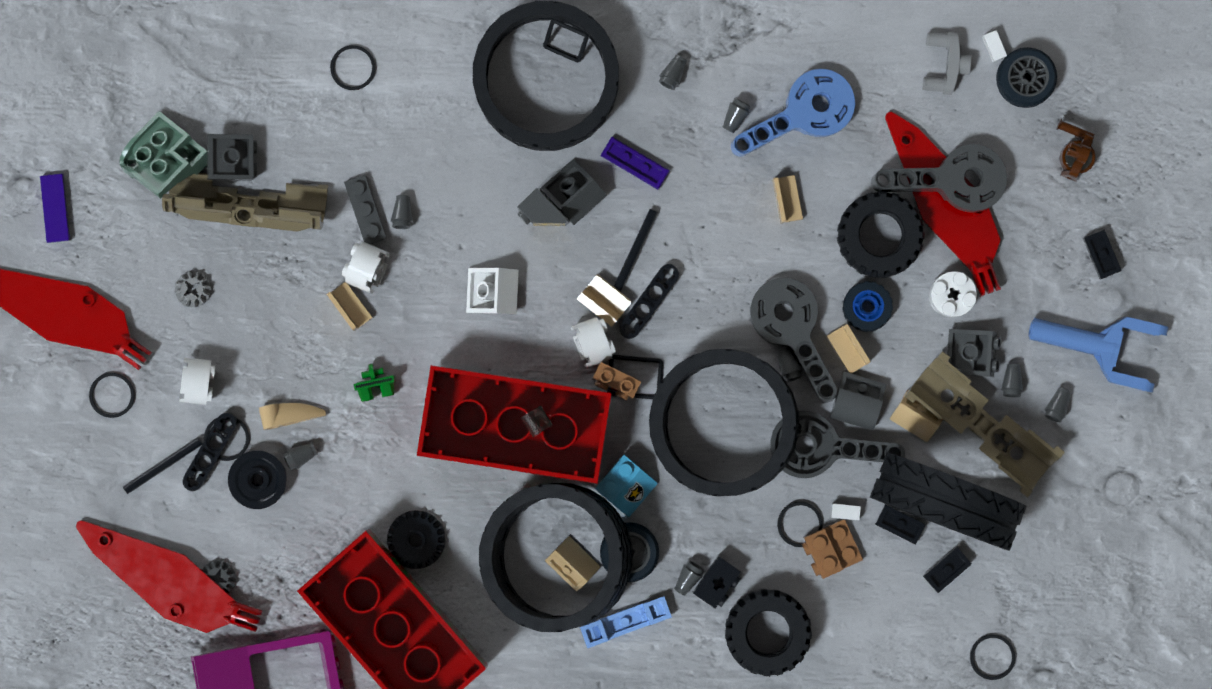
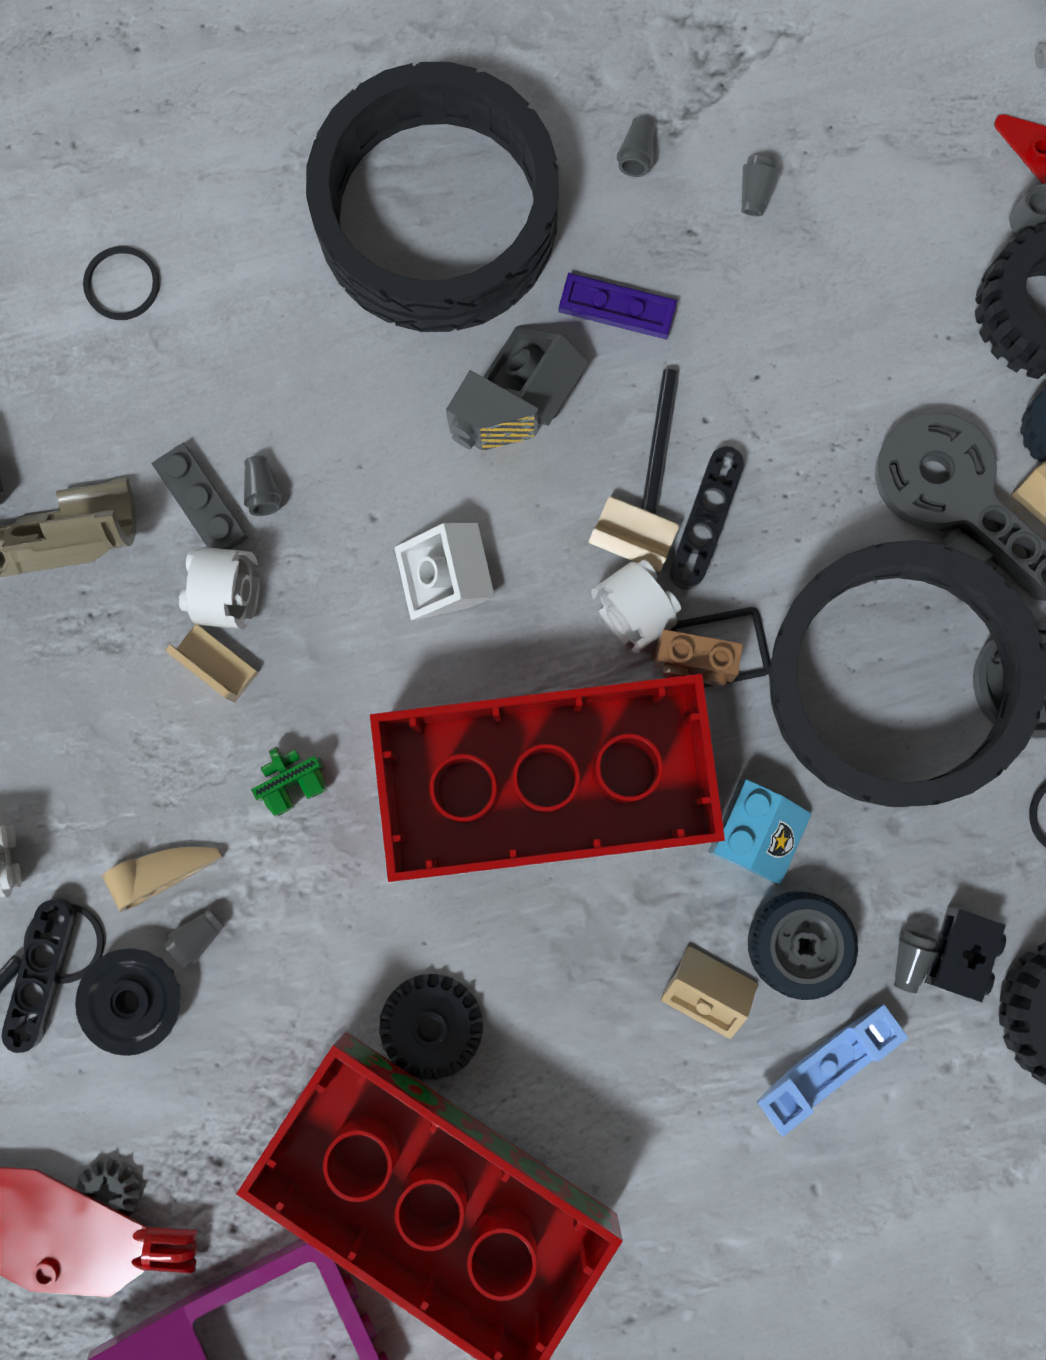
camera: 15 degrees left, 5 degrees down
(493, 564) = (628, 1096): black tyre -> none
(537, 421) = (586, 759): clear smoke brick -> none
(583, 46) = (481, 136): black piece -> none
(787, 199) = (879, 293): tan panel -> none
(801, 113) = (862, 150): medium blue beam -> none

